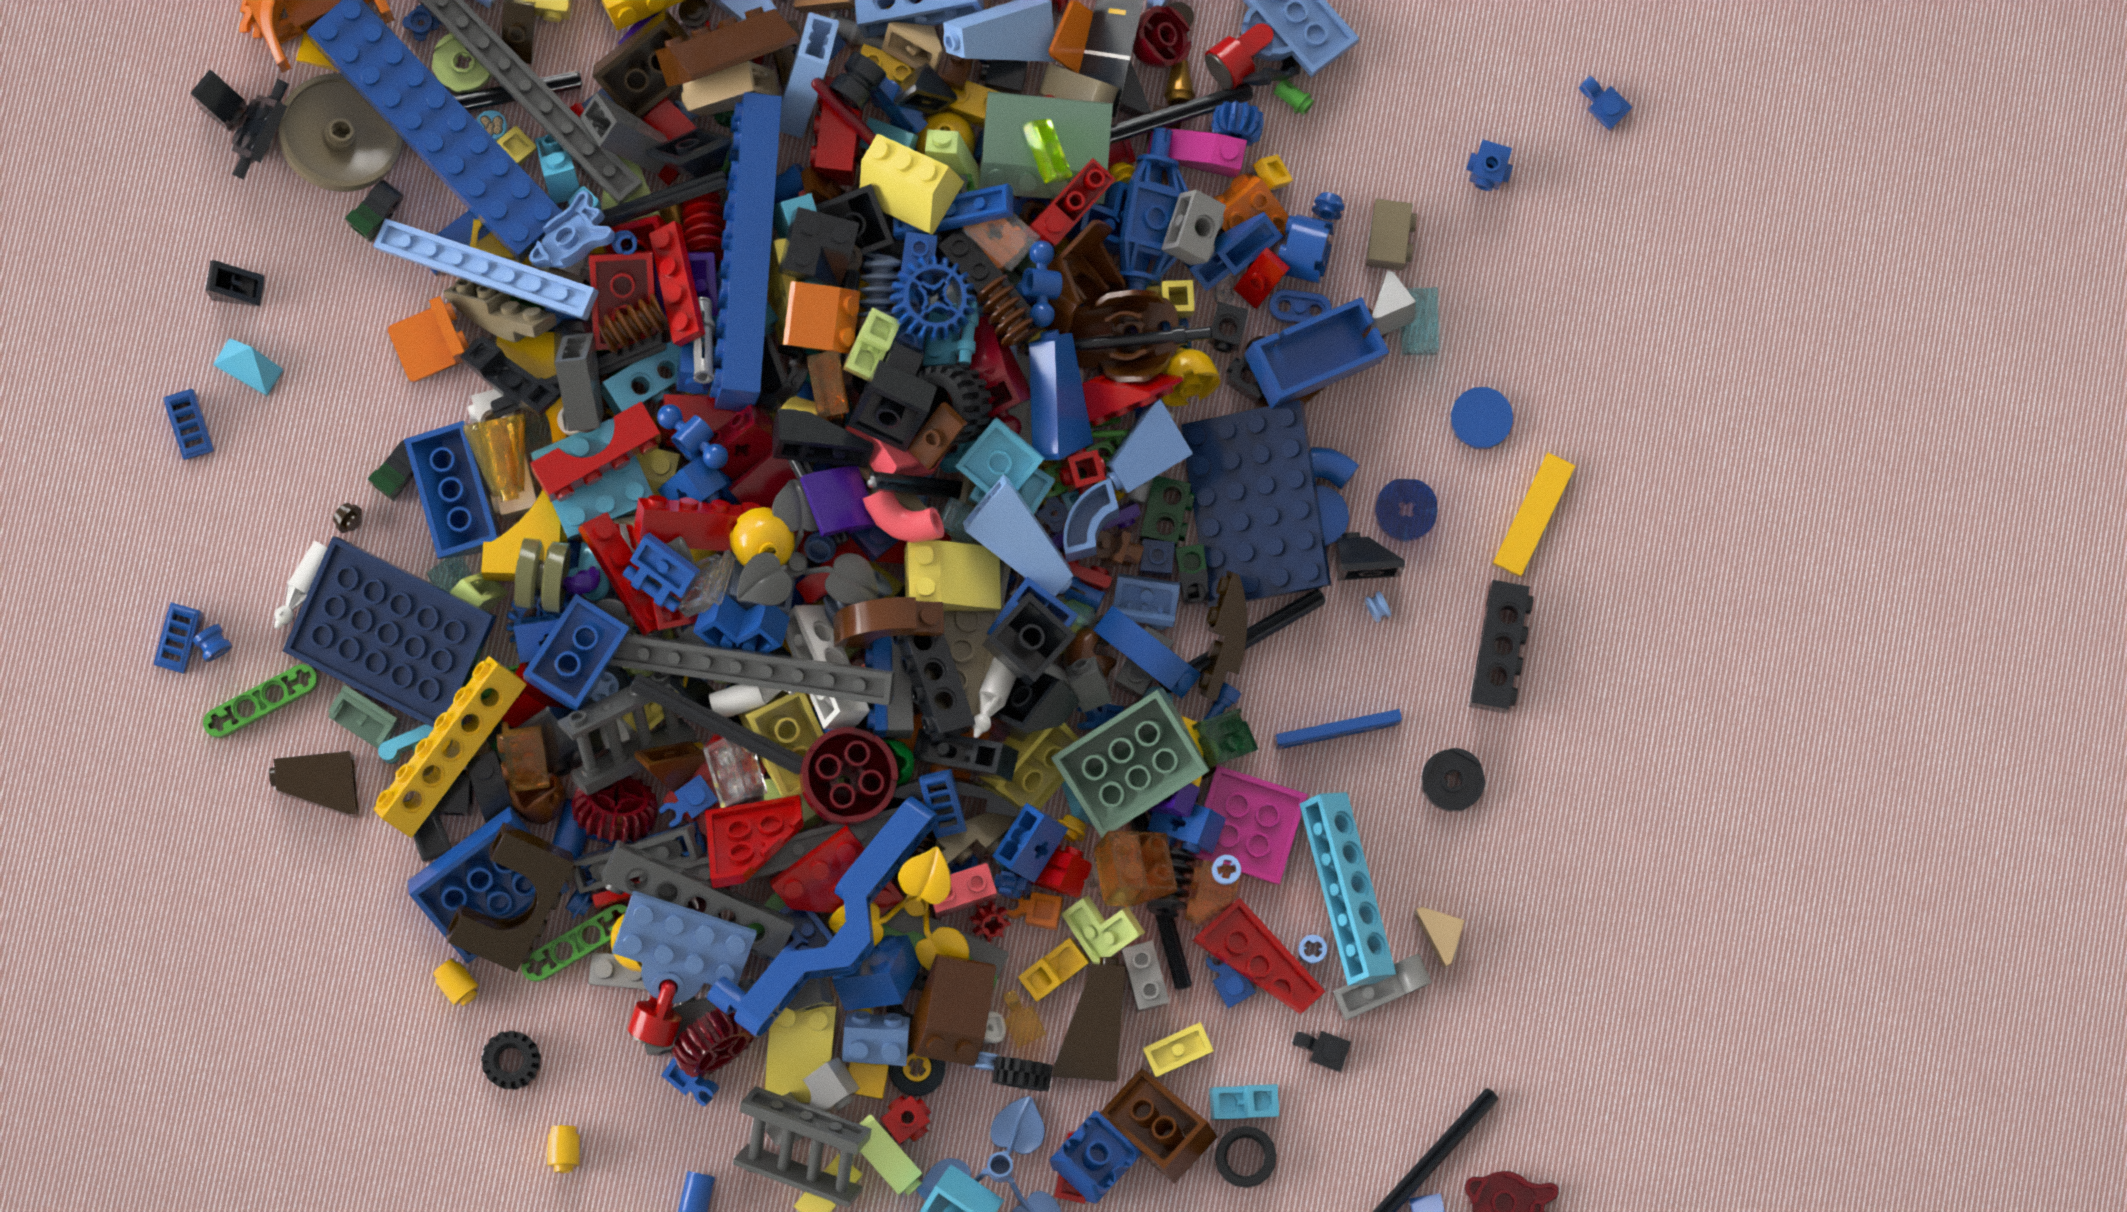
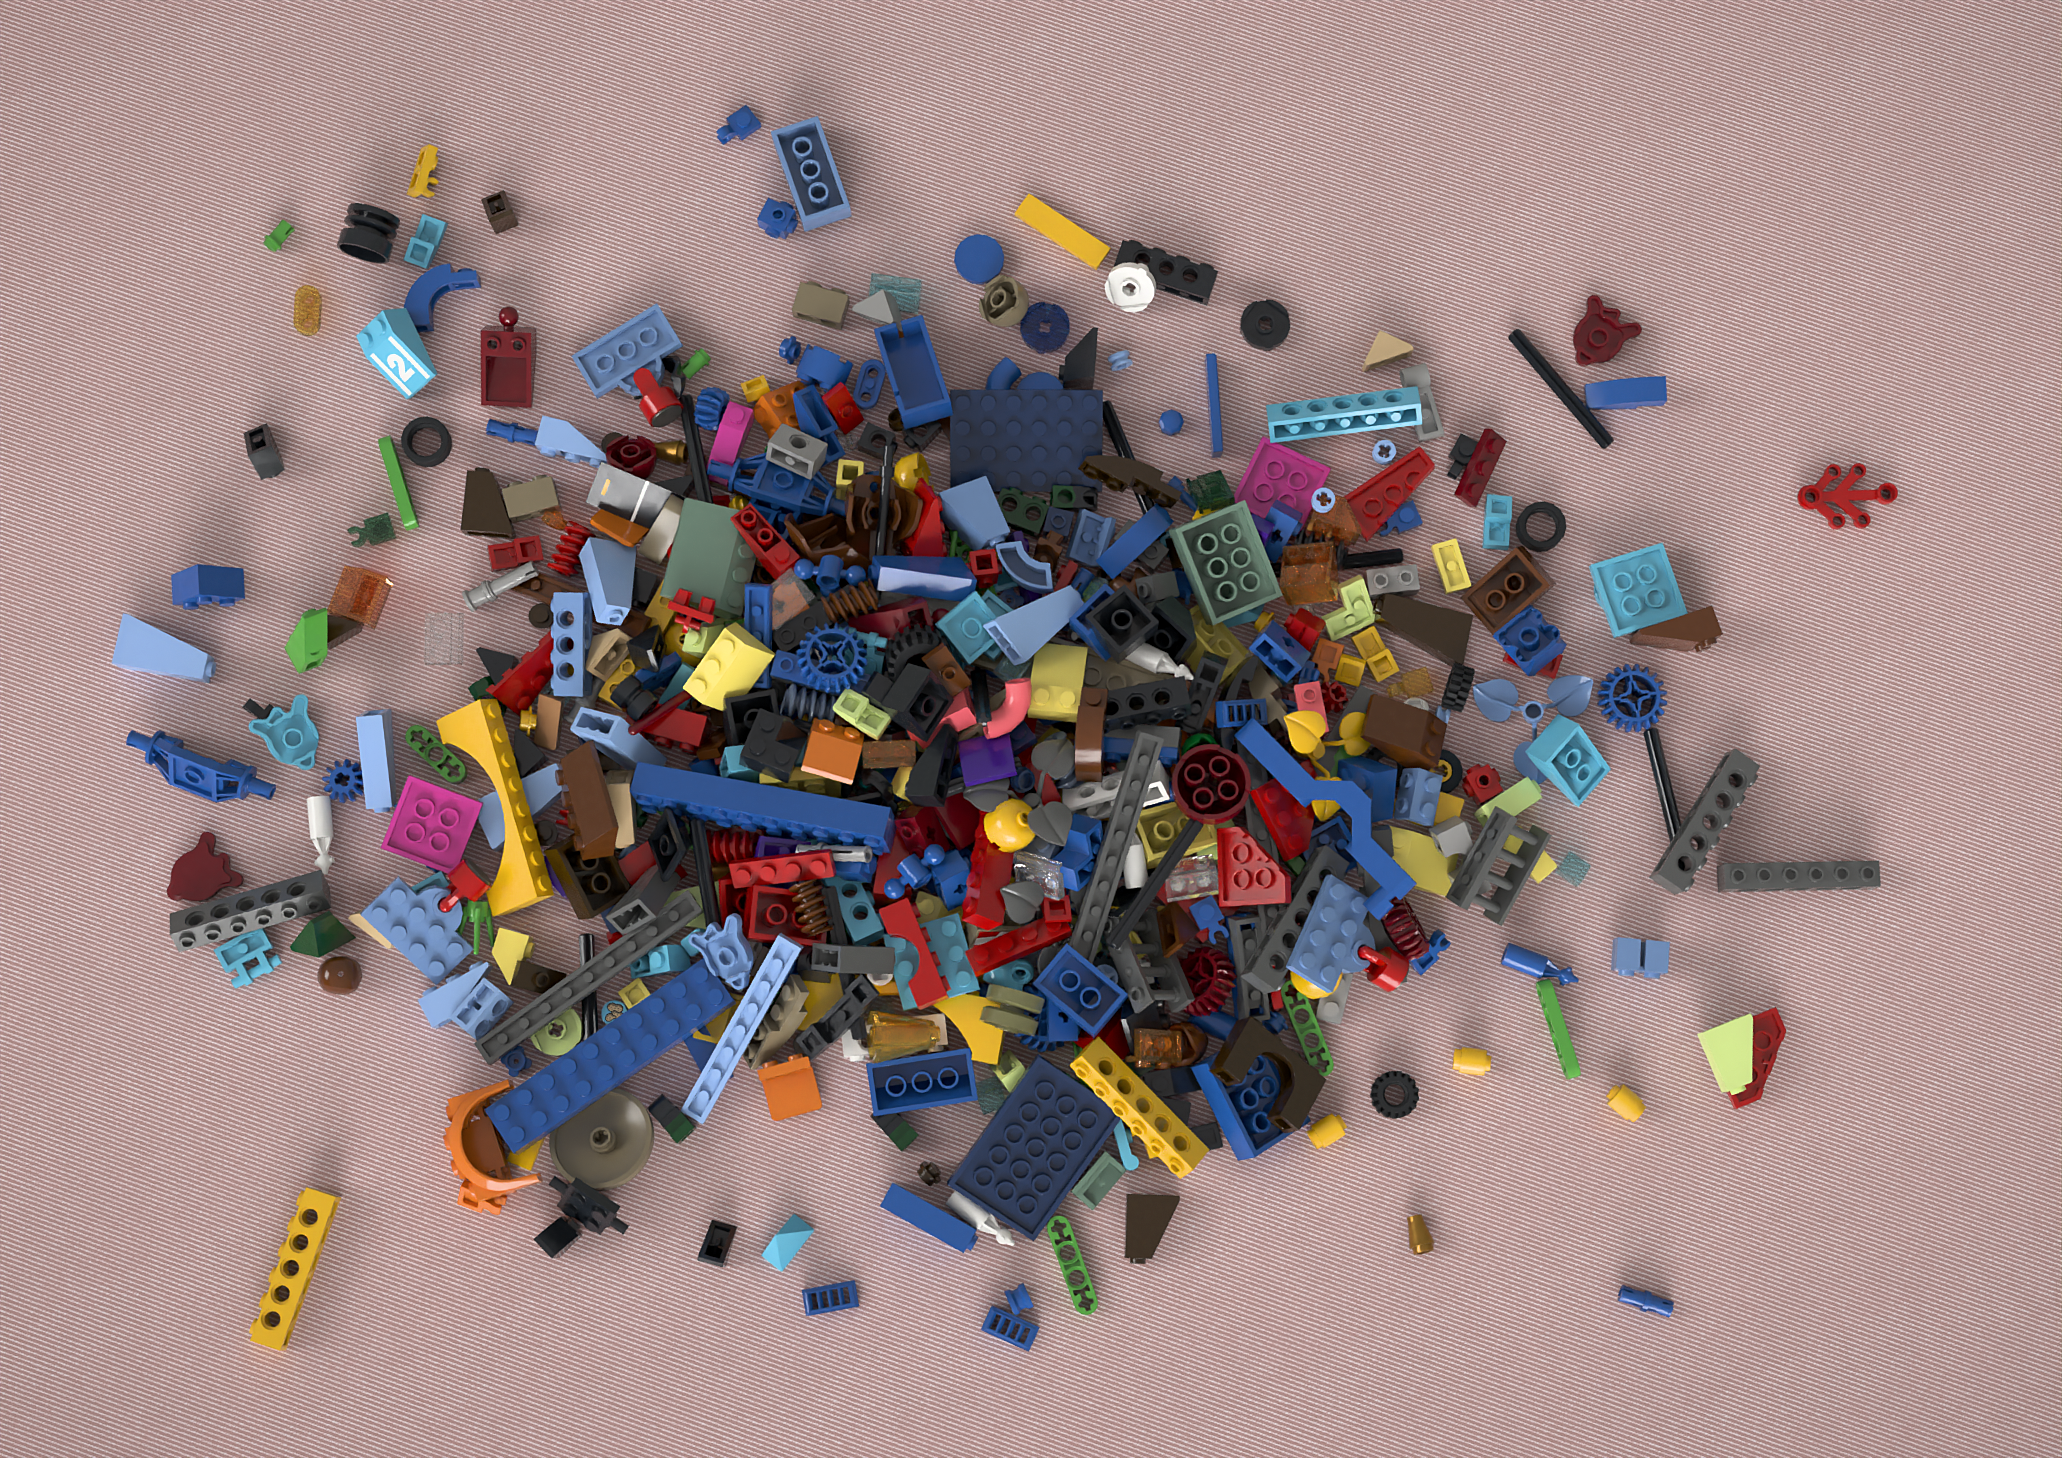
camera: 80 degrees left, 0 degrees up
(294, 521) = (929, 1218): none -> blue slope
(344, 1111) = (1419, 1236): none -> pearl gold cone
(582, 582) = (1020, 977): dark purple plate -> none
(630, 247) = (737, 904): blue pin -> none
(663, 565) = (1024, 904): blue plate -> none
(968, 129) = (681, 604): none -> red hips
(1027, 940) = (1350, 670): none -> yellow plate
(1047, 151) = (719, 552): clear neon green plate -> none
(1309, 680) = (1171, 422): none -> blue tile
(1309, 1071) = (1480, 467): none -> dark red plate
(1426, 453) = (1004, 301): none -> dark tan cylinder
(1484, 607) = (1137, 275): none -> white plate
(1553, 196) = (811, 173): none -> medium blue brick

